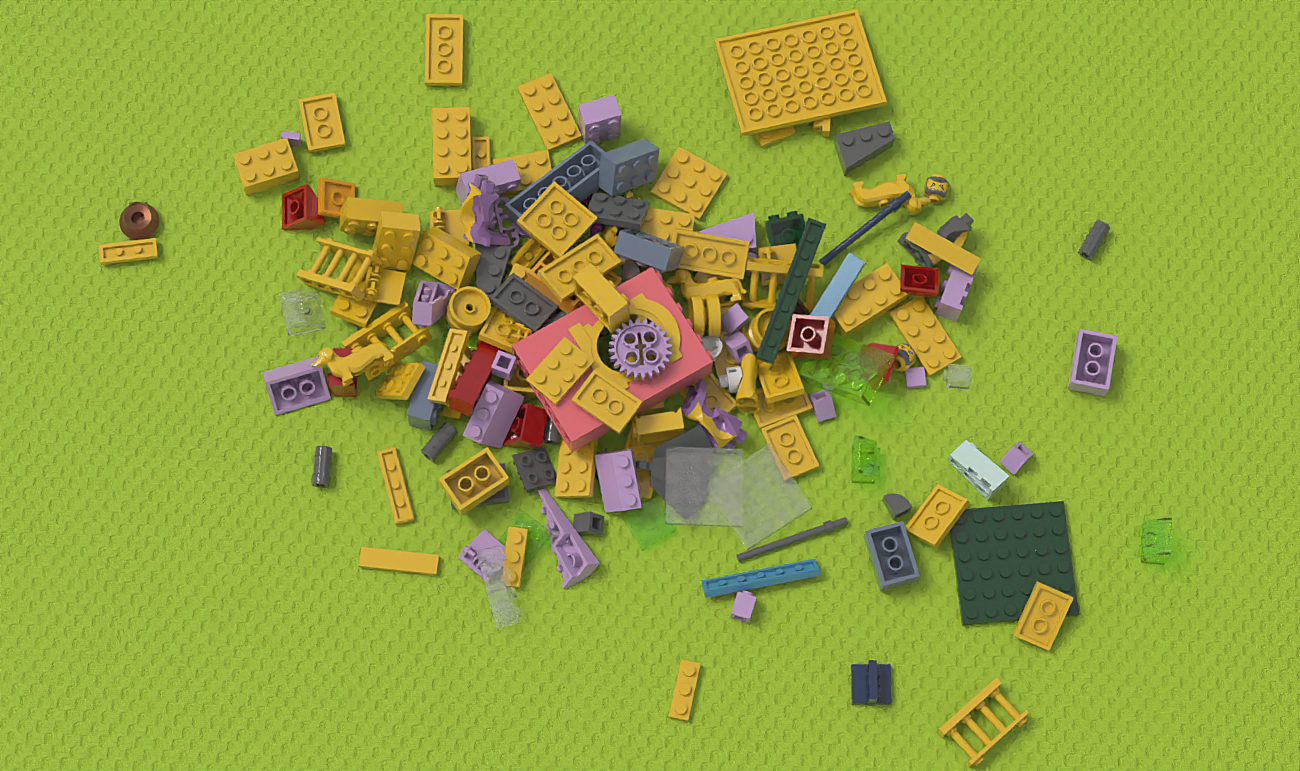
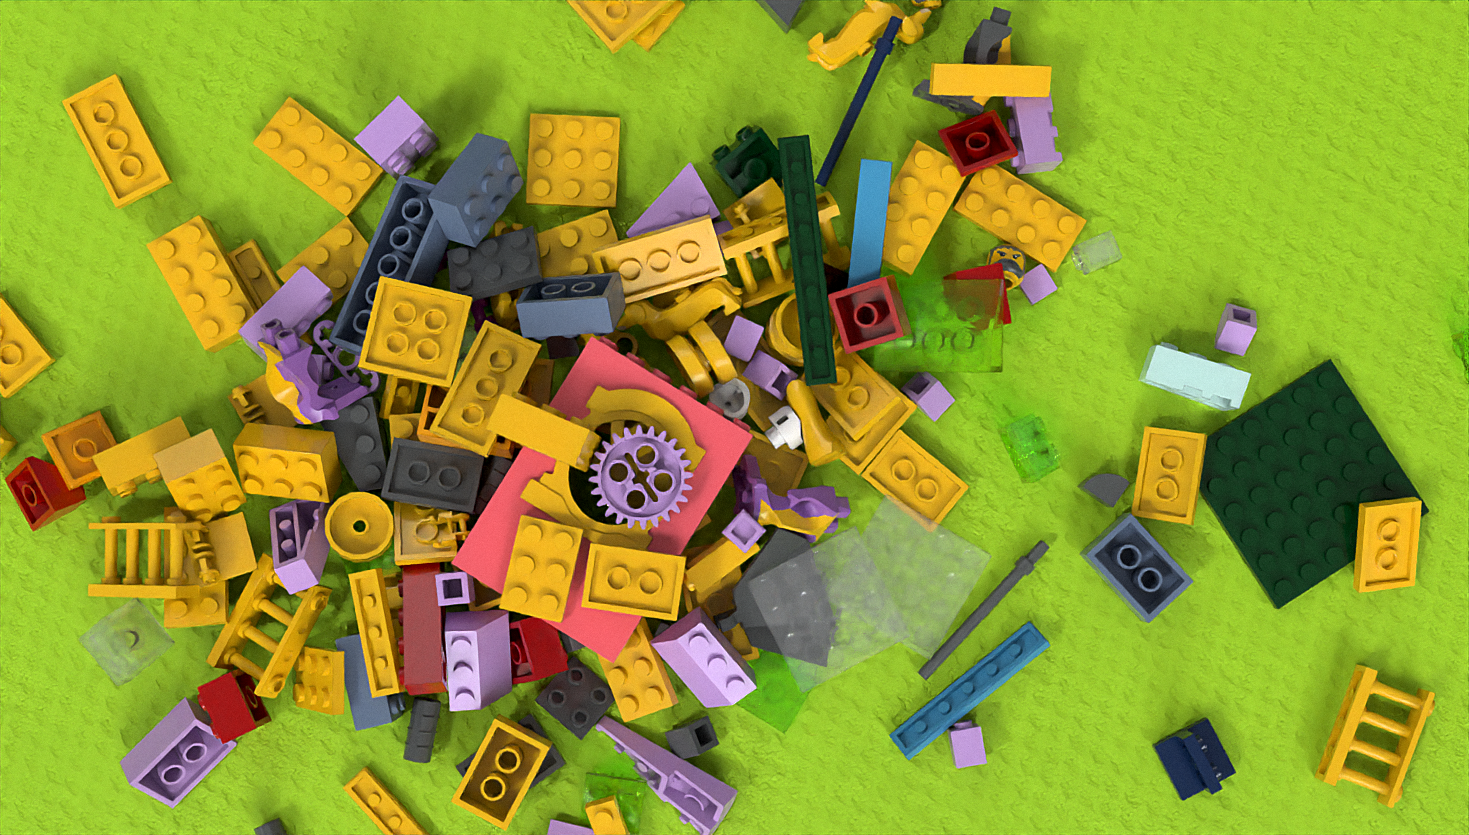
camera: 25 degrees left, 15 degrees up
(356, 362) = (241, 697): yellow animal -> none
(680, 412) = (743, 531): none -> lavender tile
(1092, 362) = (1276, 135): lavender brick -> none

